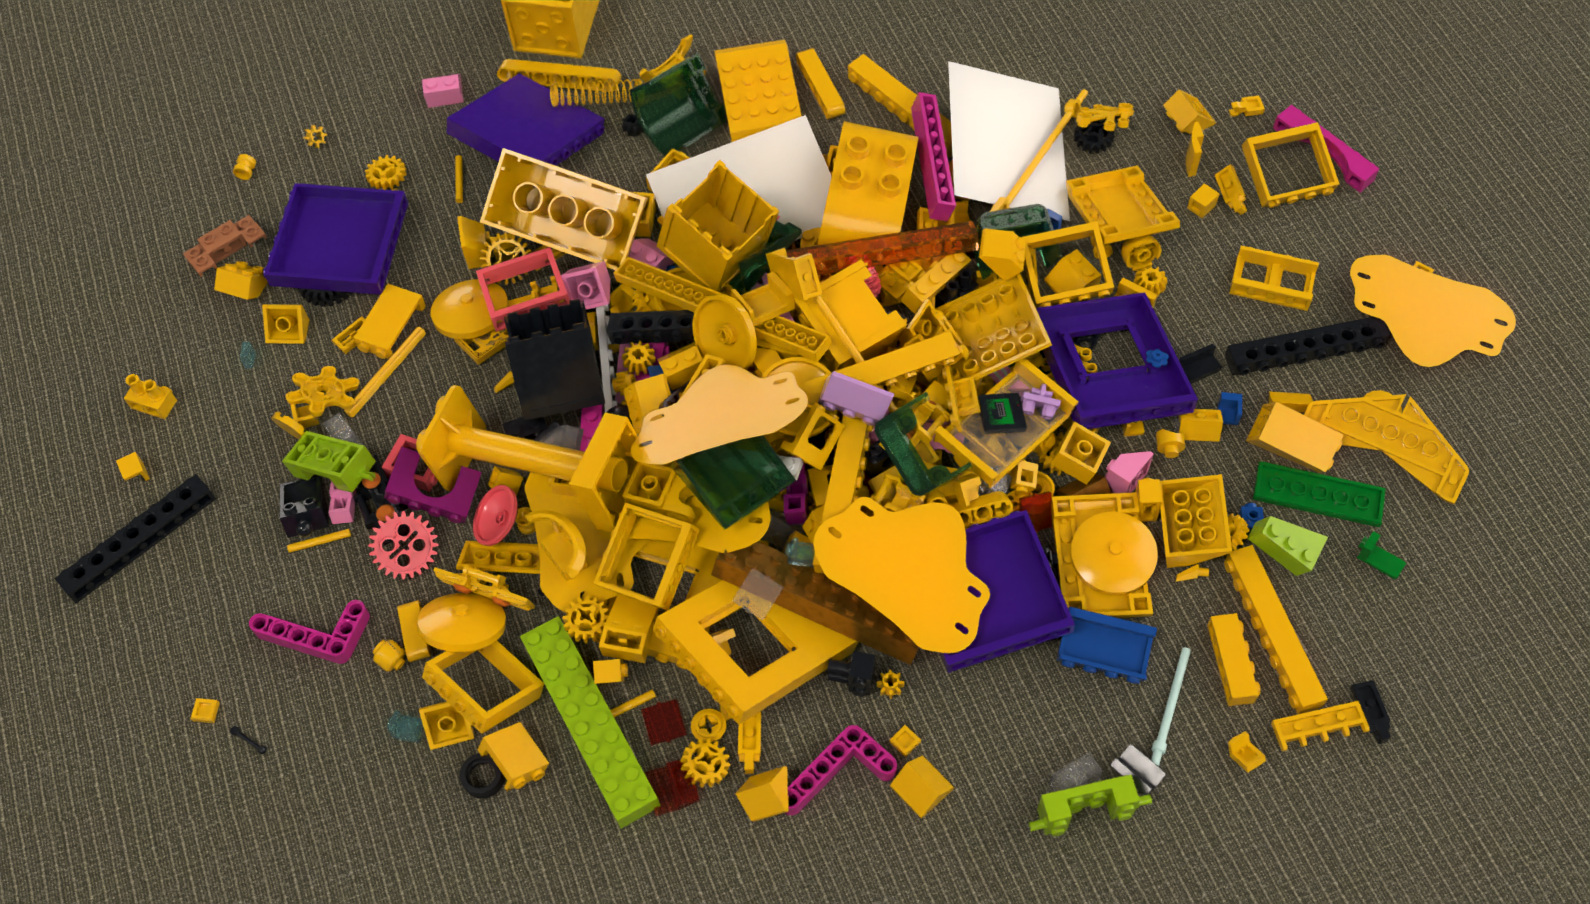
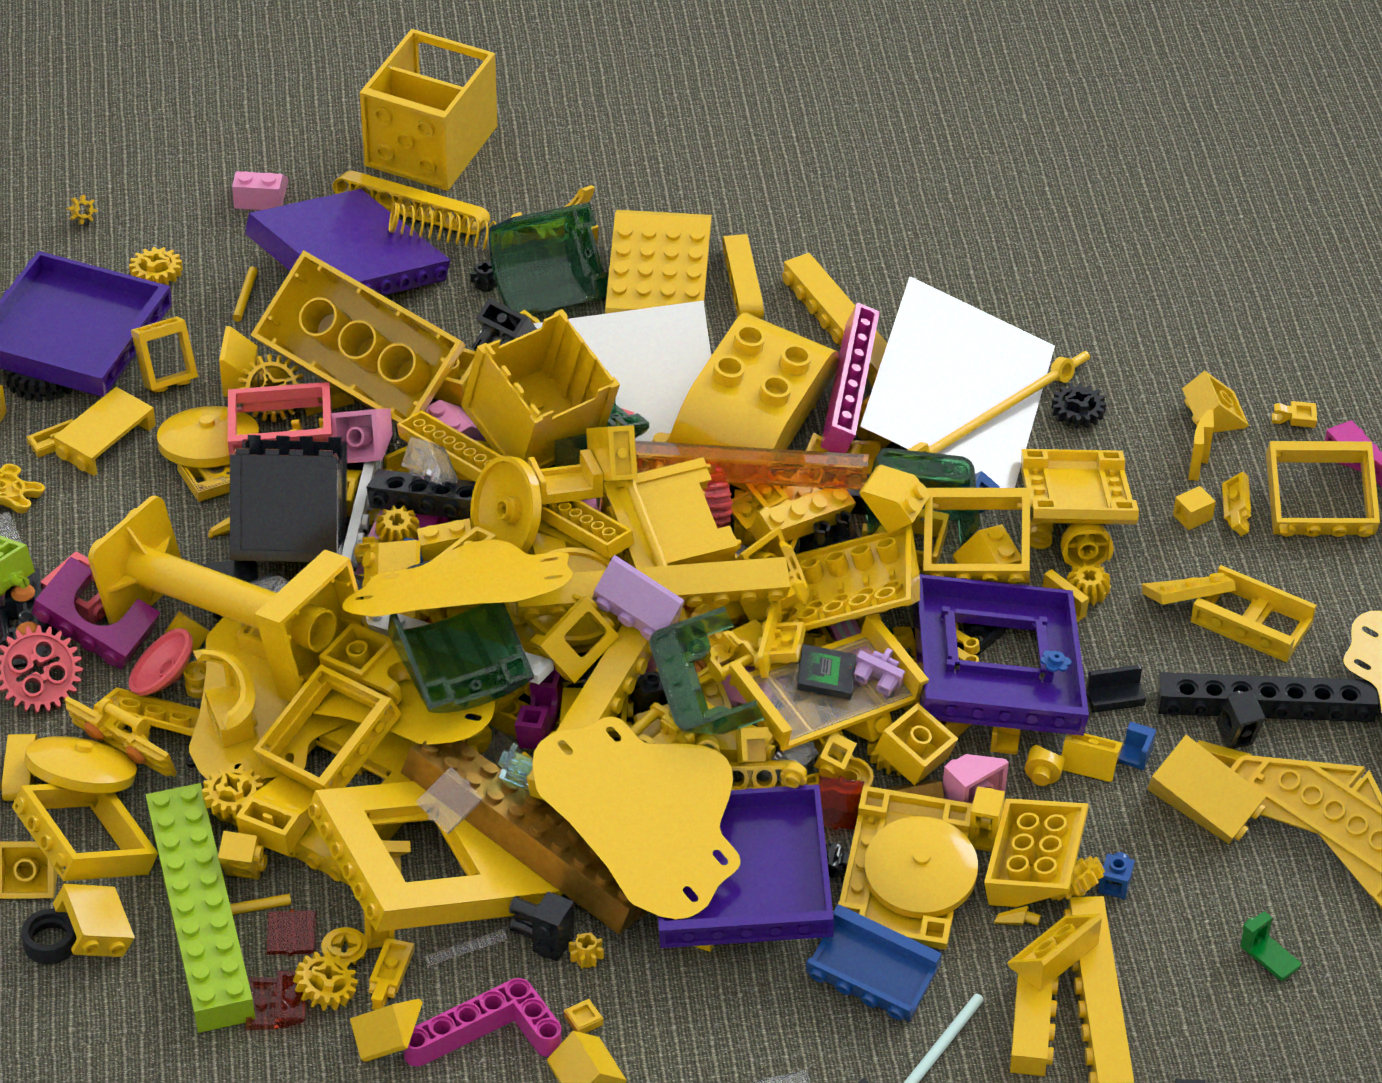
camera: 10 degrees right, 15 degrees down
(386, 370) = (81, 485): yellow axle -> none
(406, 233) = (157, 330): none -> yellow window
(650, 301) = (429, 459): none -> clear slope
(663, 166) = (502, 323): none -> black brick
(780, 716) = (465, 947): none -> clear bar
(1007, 508) = (794, 775): none -> yellow plate
(1100, 112) = (1101, 385): yellow plant -> none
(1223, 270) = (1186, 589): none -> yellow wing
(1235, 600) = (1057, 949): none -> yellow slope
(1288, 544) = (1149, 903): lime wedge -> none
(1299, 371) = (1240, 719): none -> black brick
(1319, 494) = (1219, 866): green tile -> none

